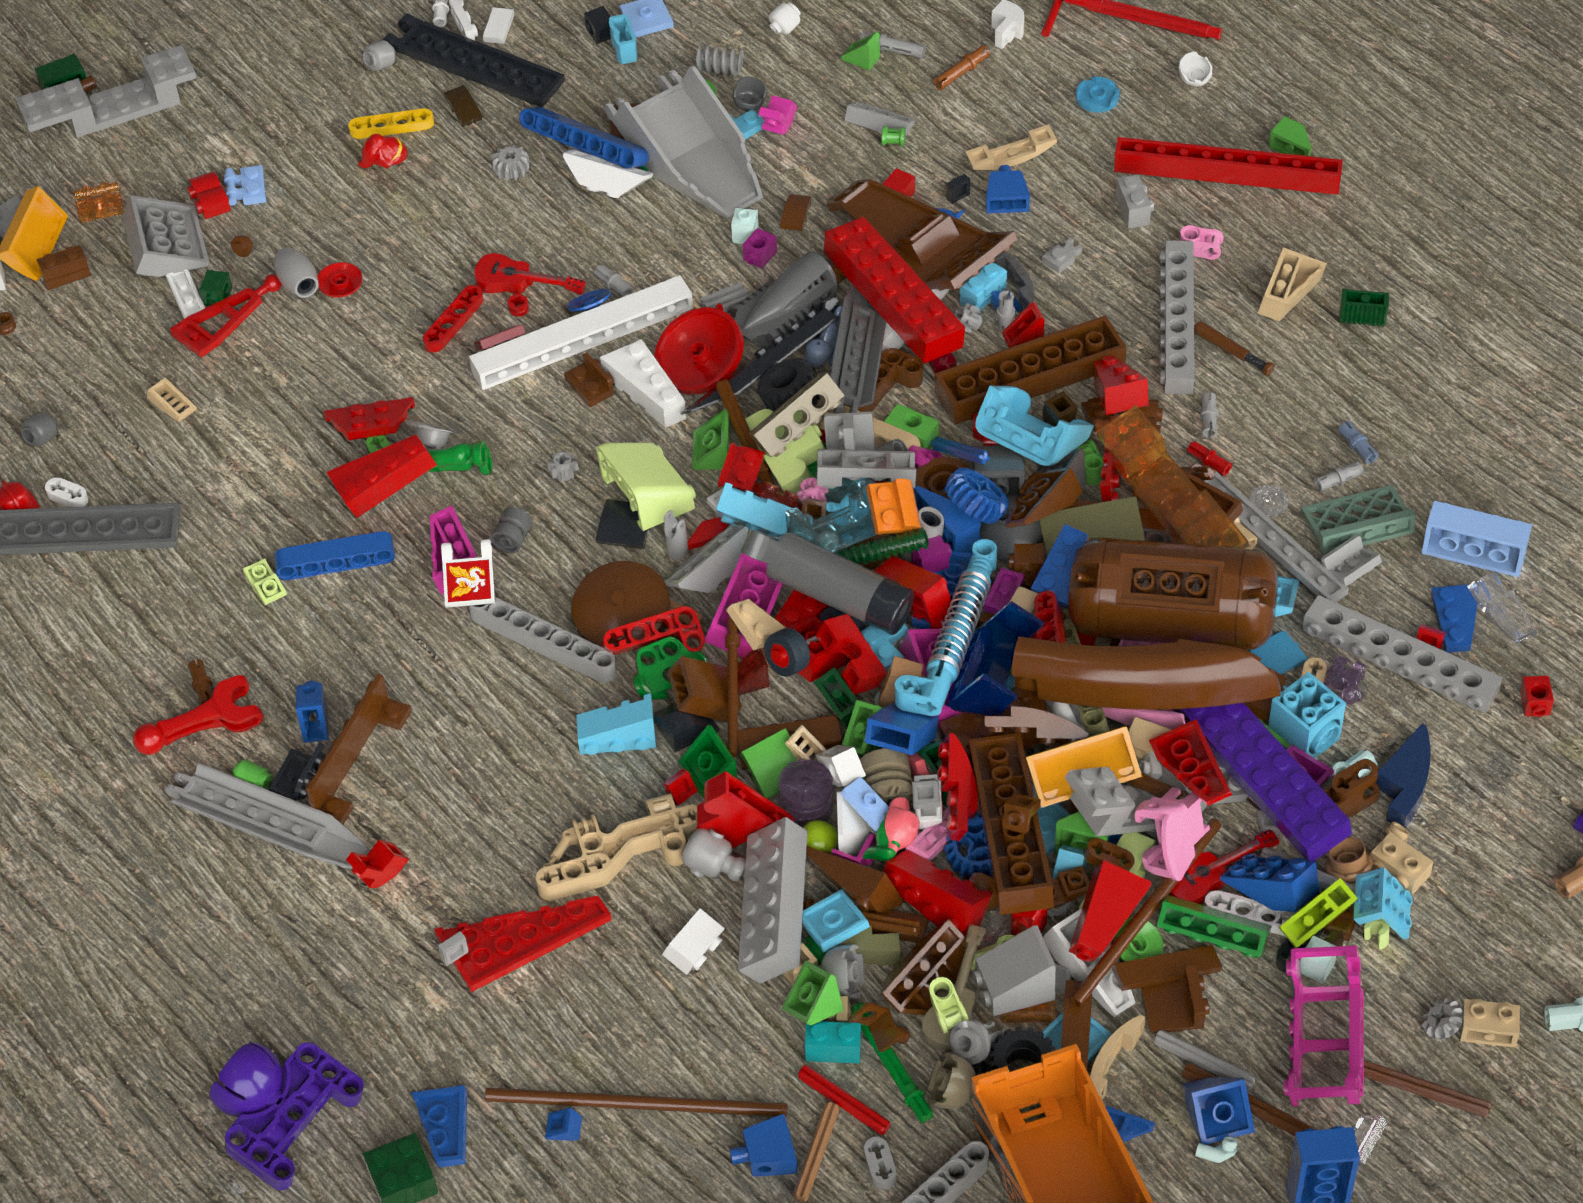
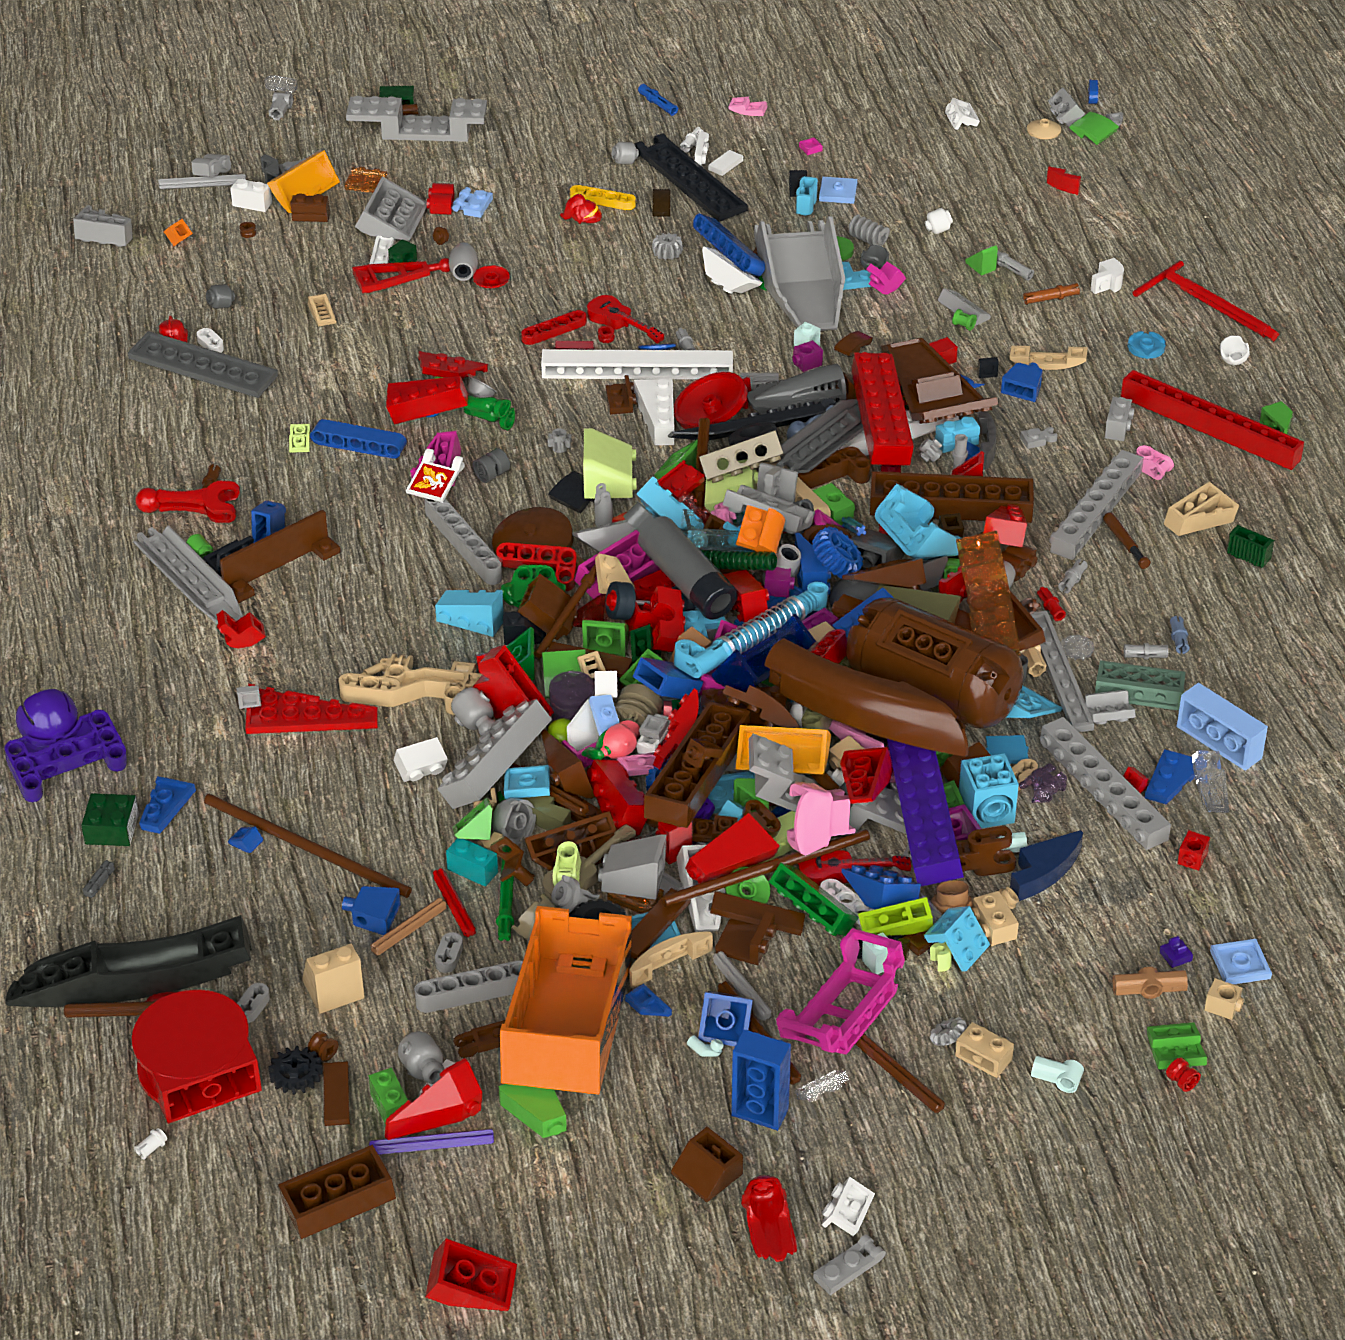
camera: 25 degrees right, 10 degrees down
(786, 700) = (606, 637): none -> bright green slope

